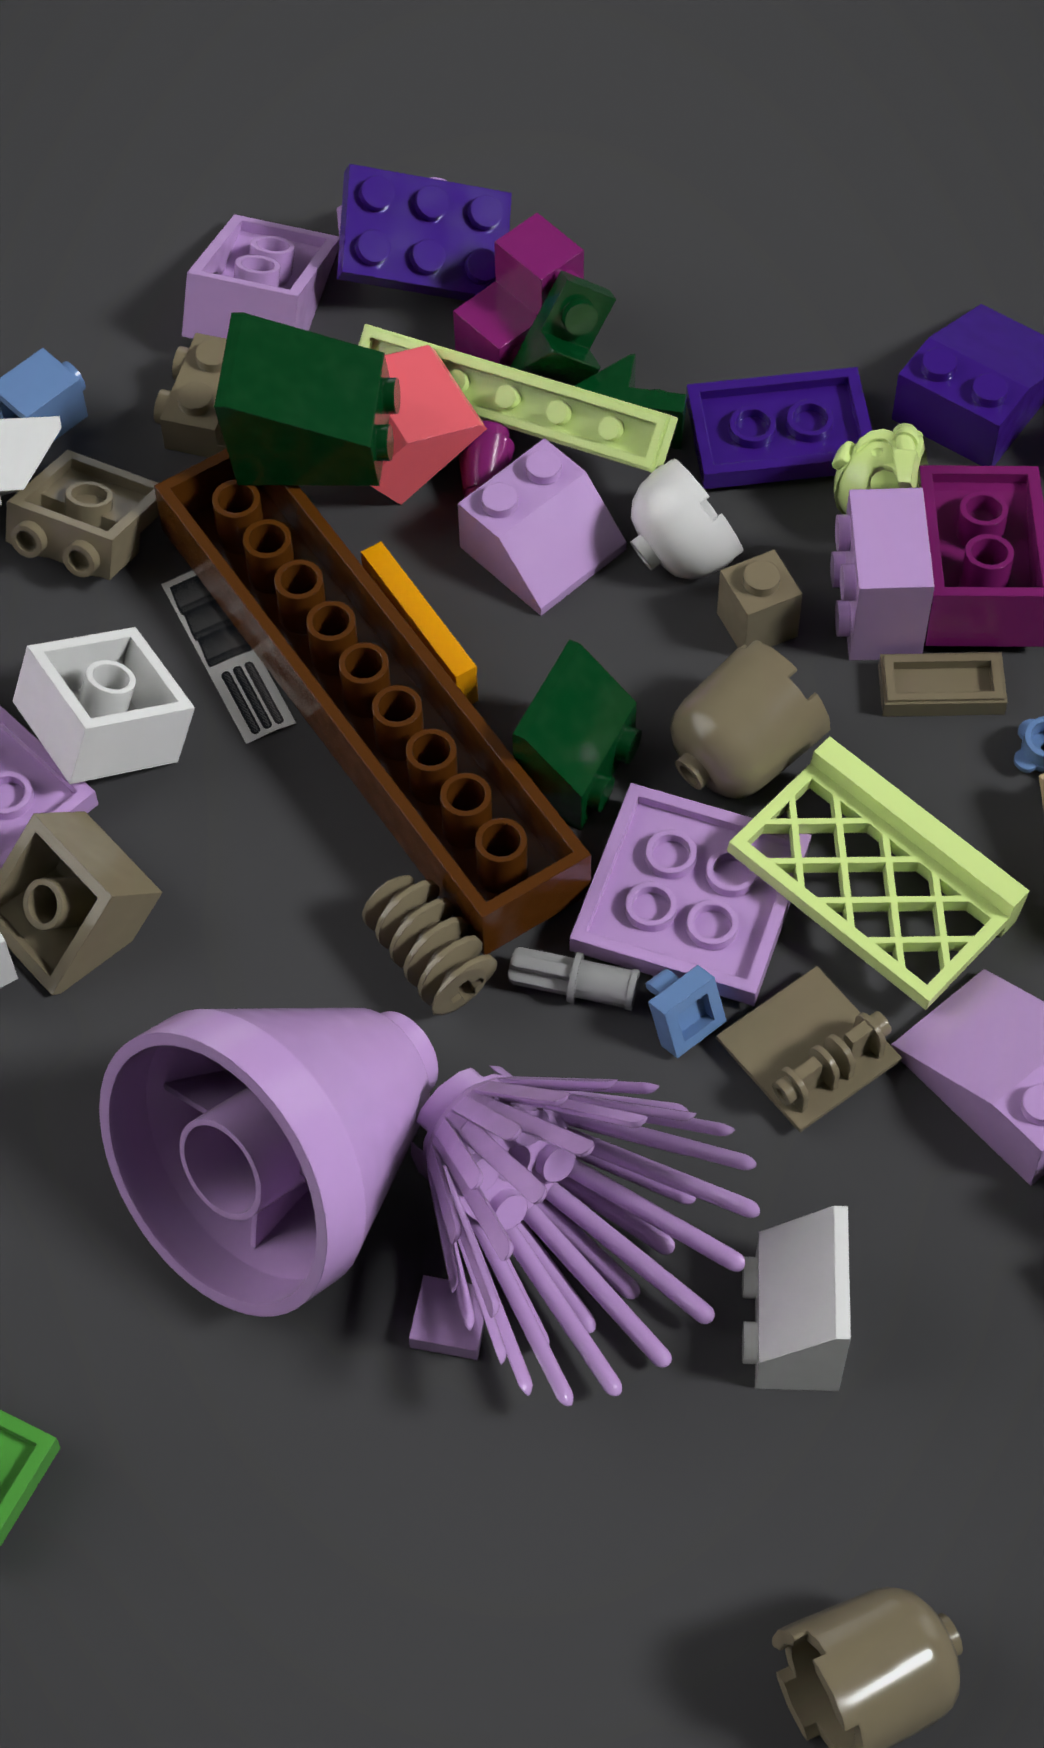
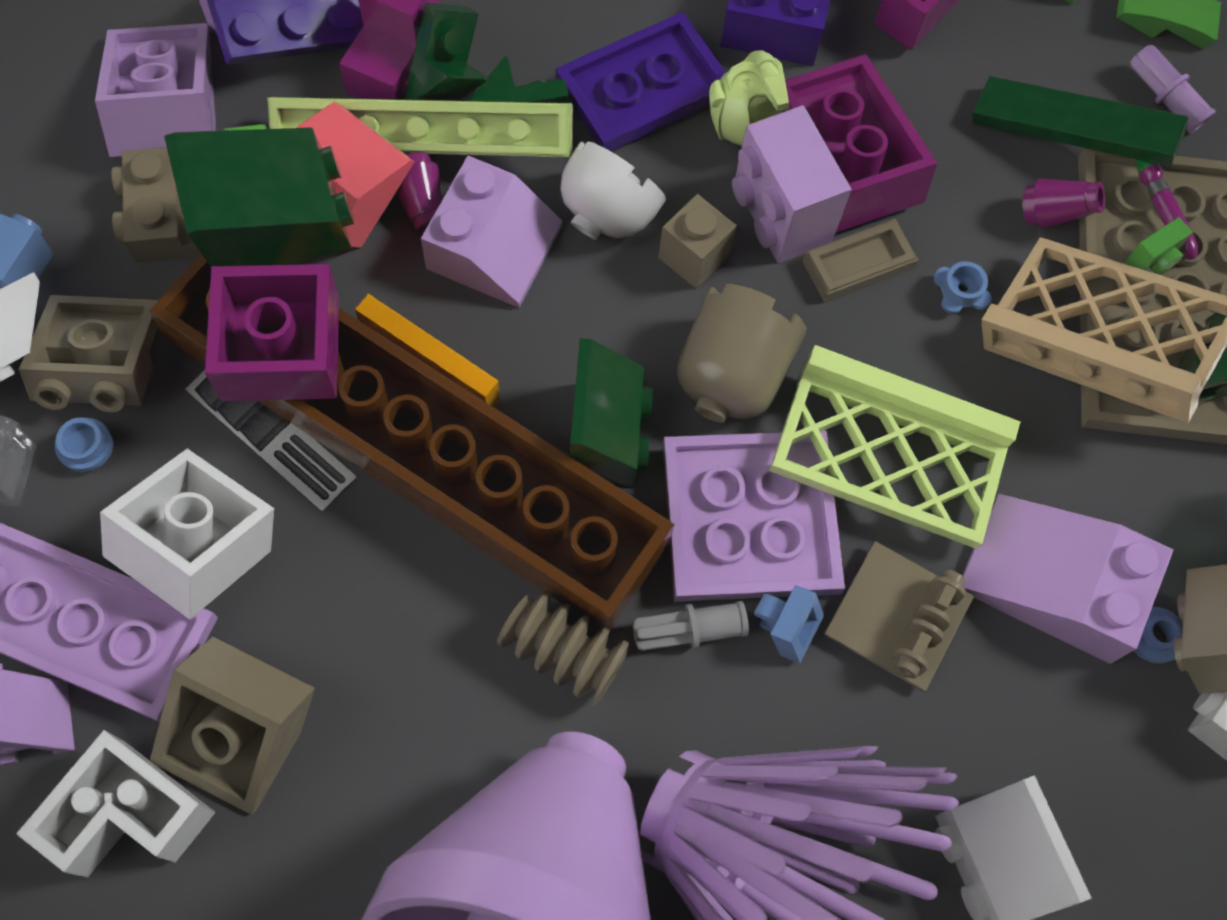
camera: 30 degrees left, 10 degrees up
(39, 599) = (83, 444): none -> medium blue plate
(262, 535) = (273, 332): none -> magenta brick

